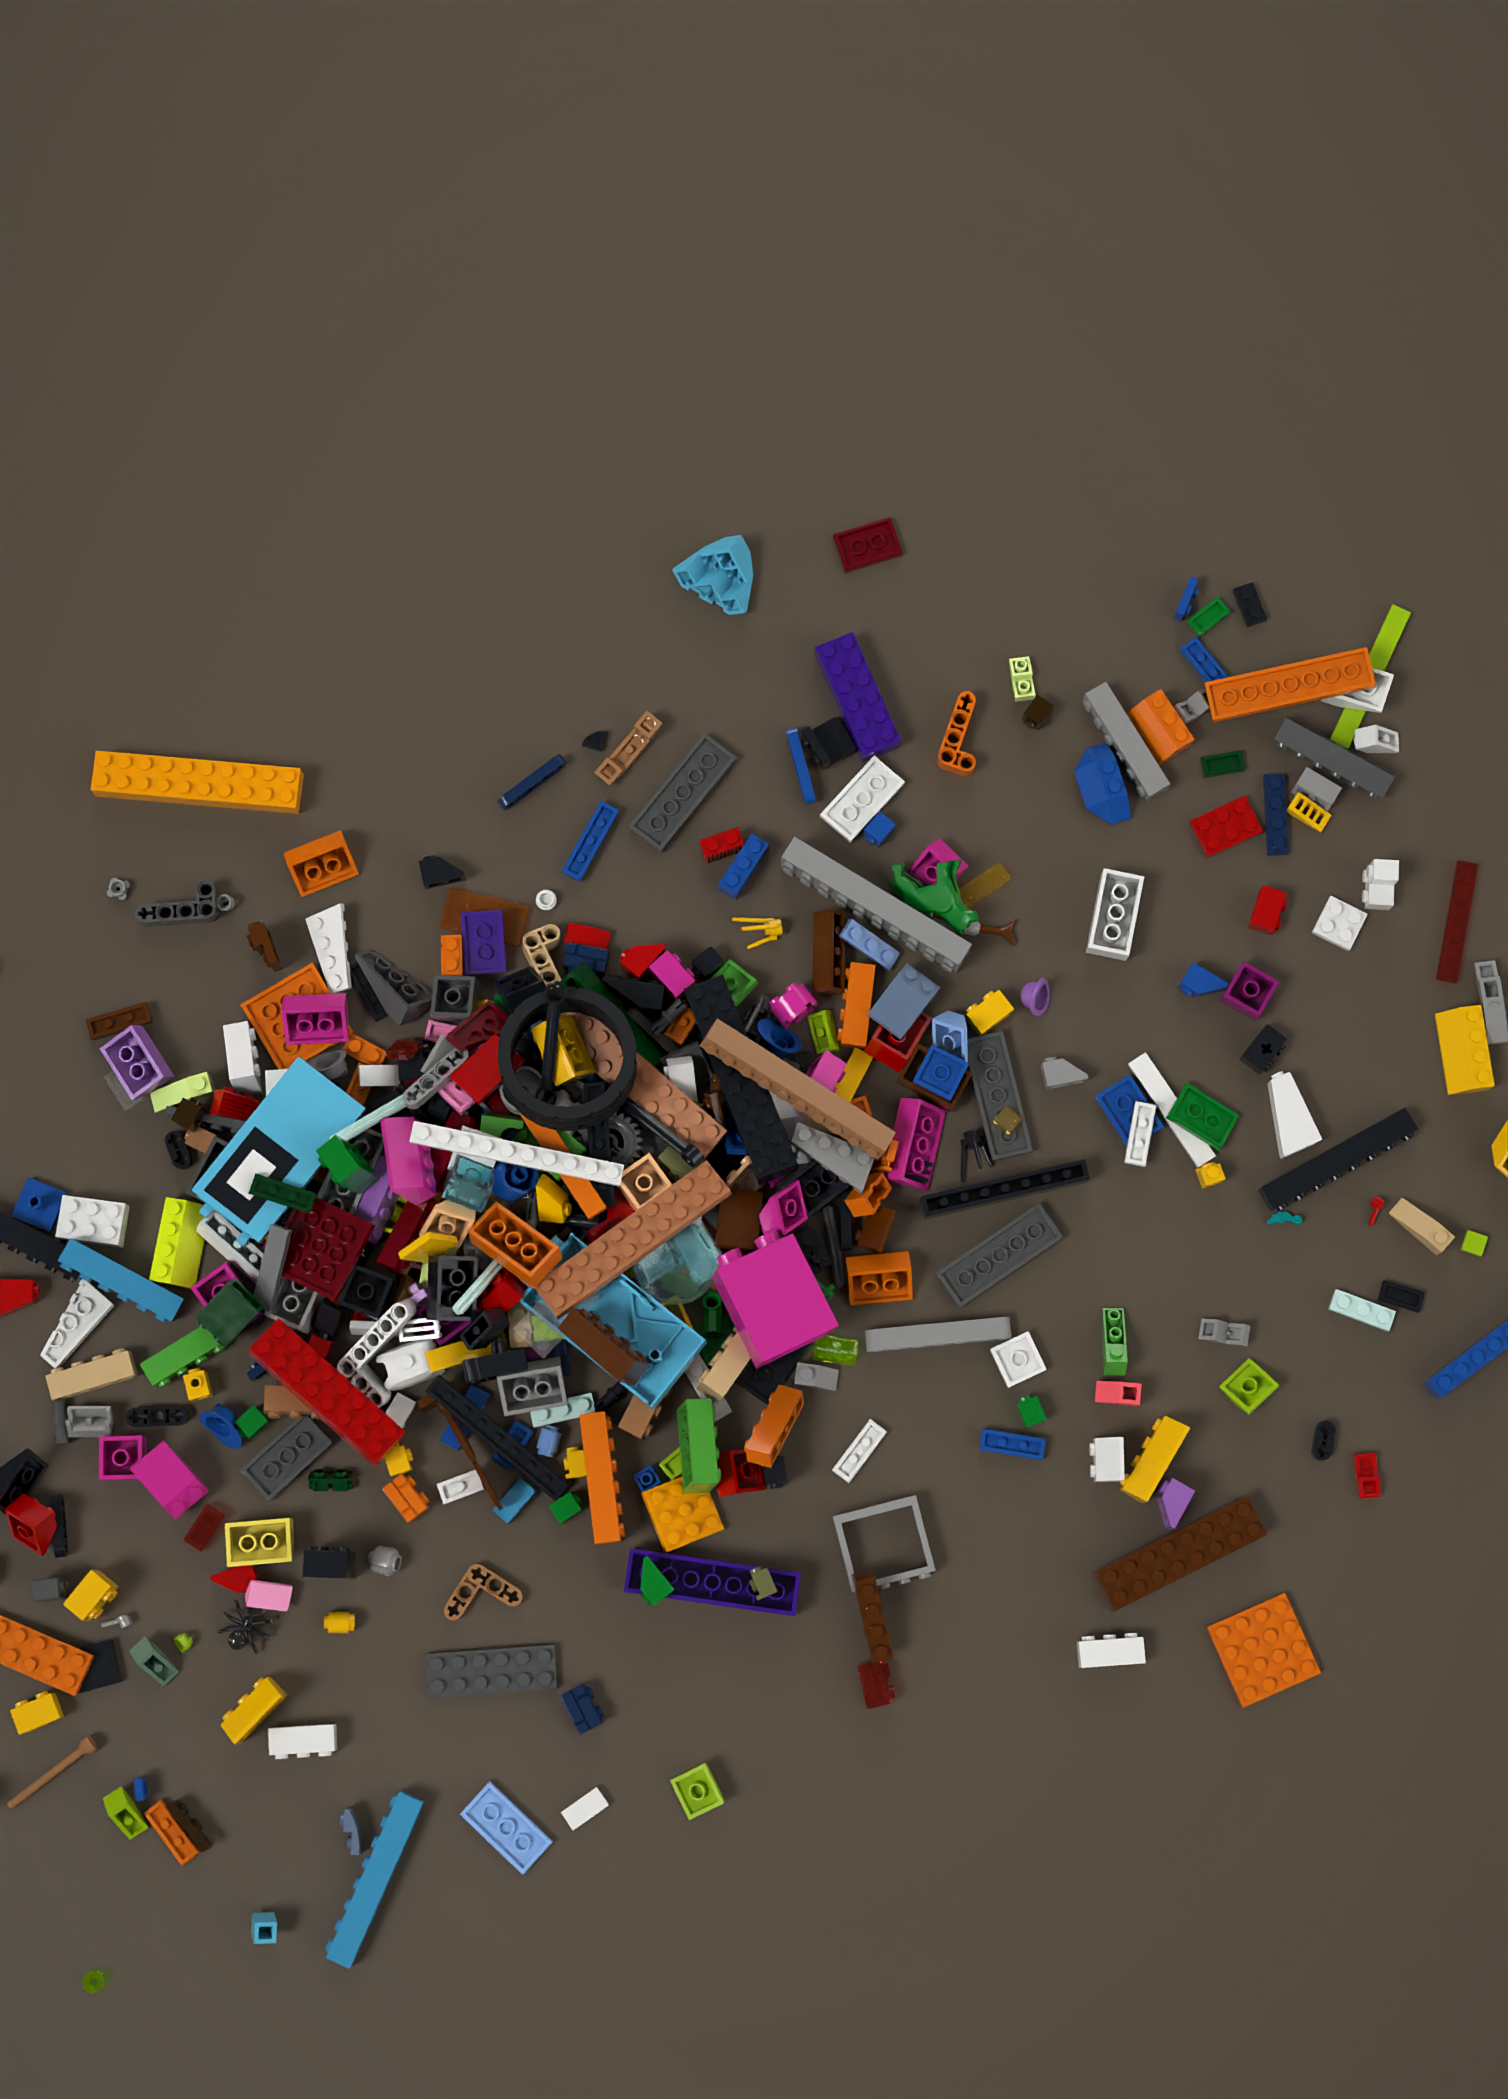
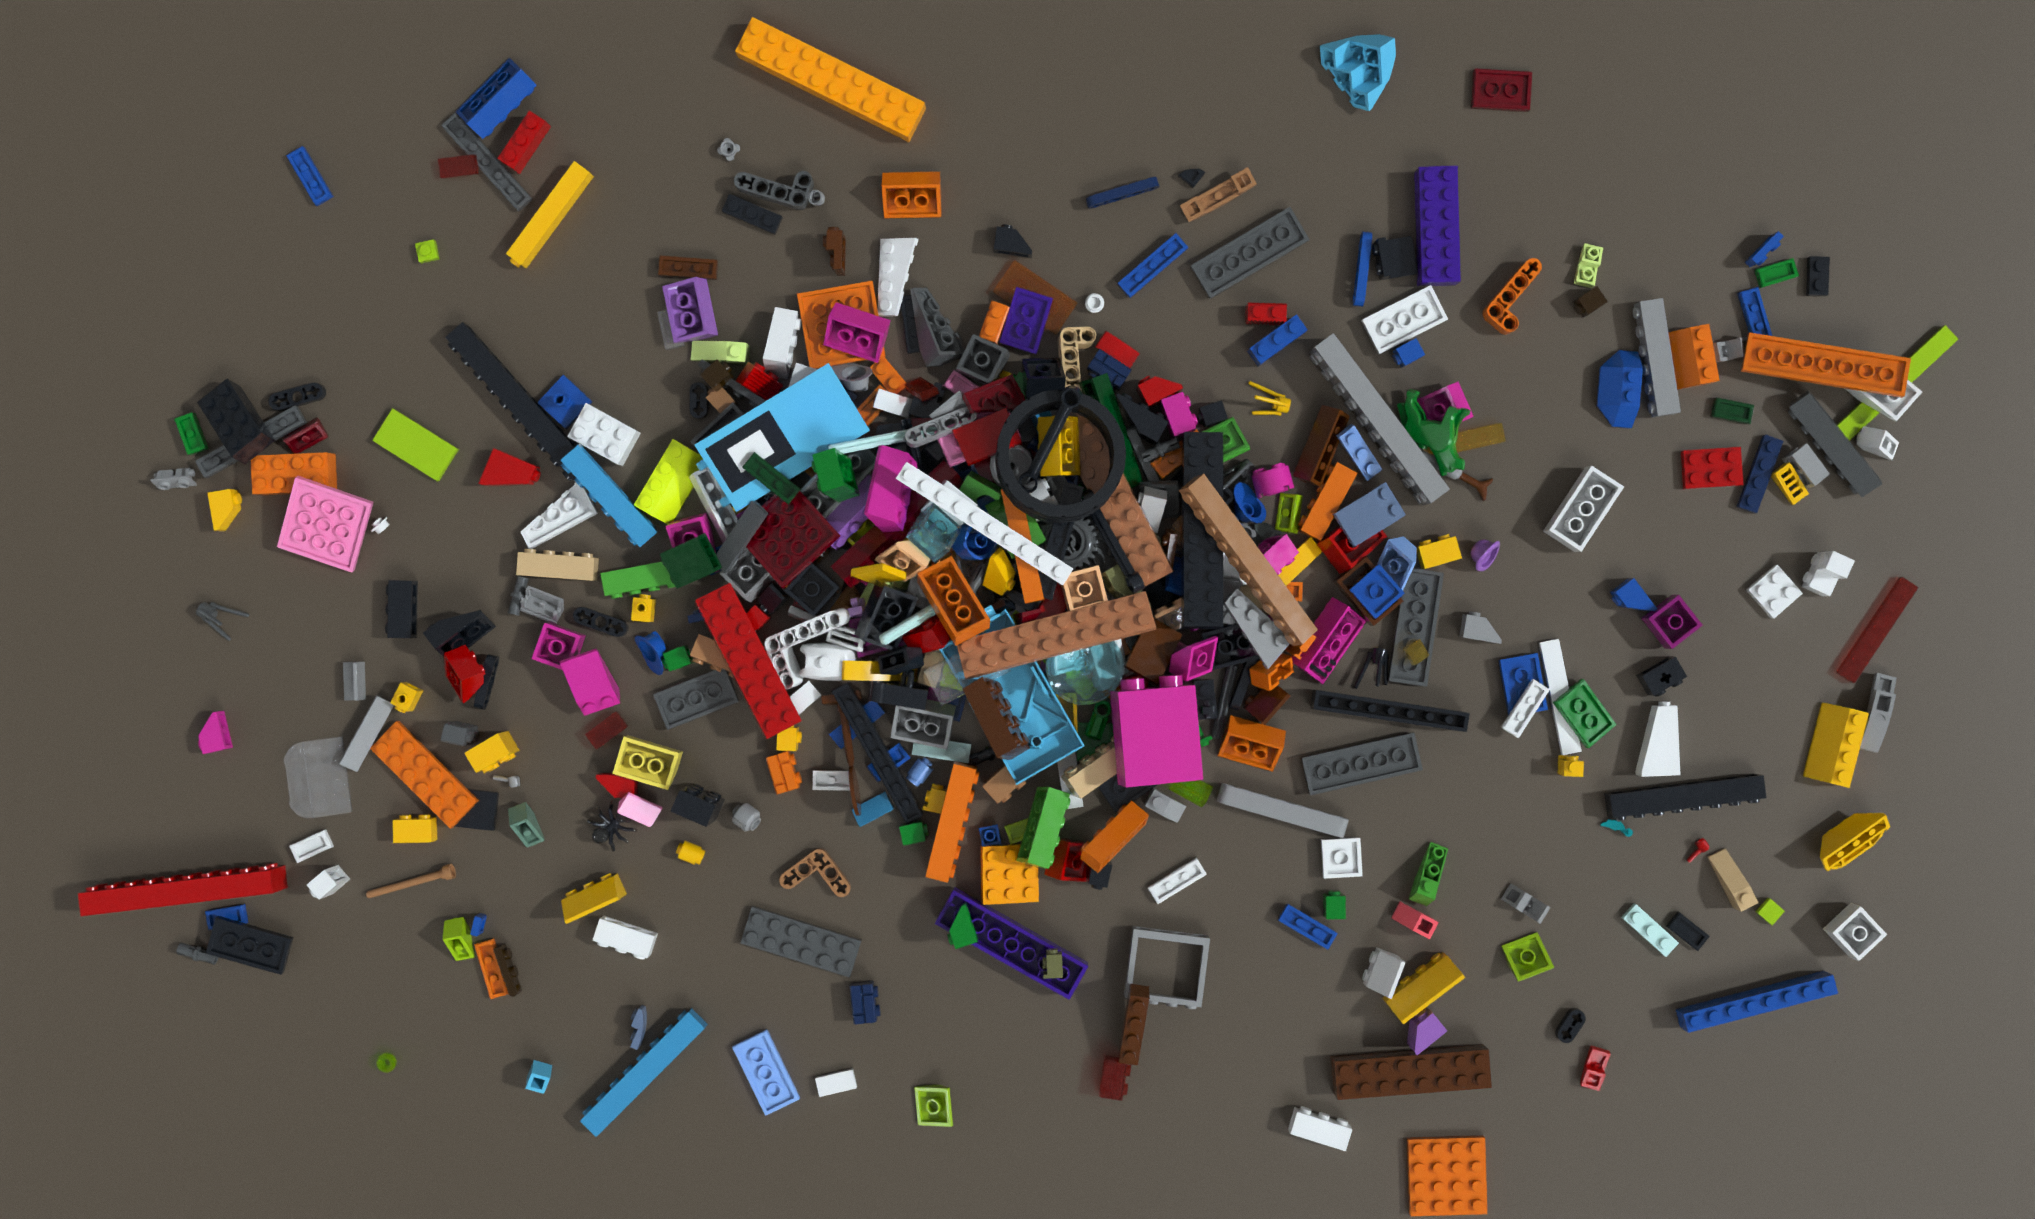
camera: 25 degrees right, 10 degrees up
(165, 943) = (752, 214): none -> black plate
(182, 1642) = (555, 819): lime hinge -> none
(320, 1479) = (717, 728): dark green hinge -> none
(1267, 910) = (1717, 556): red brick -> none

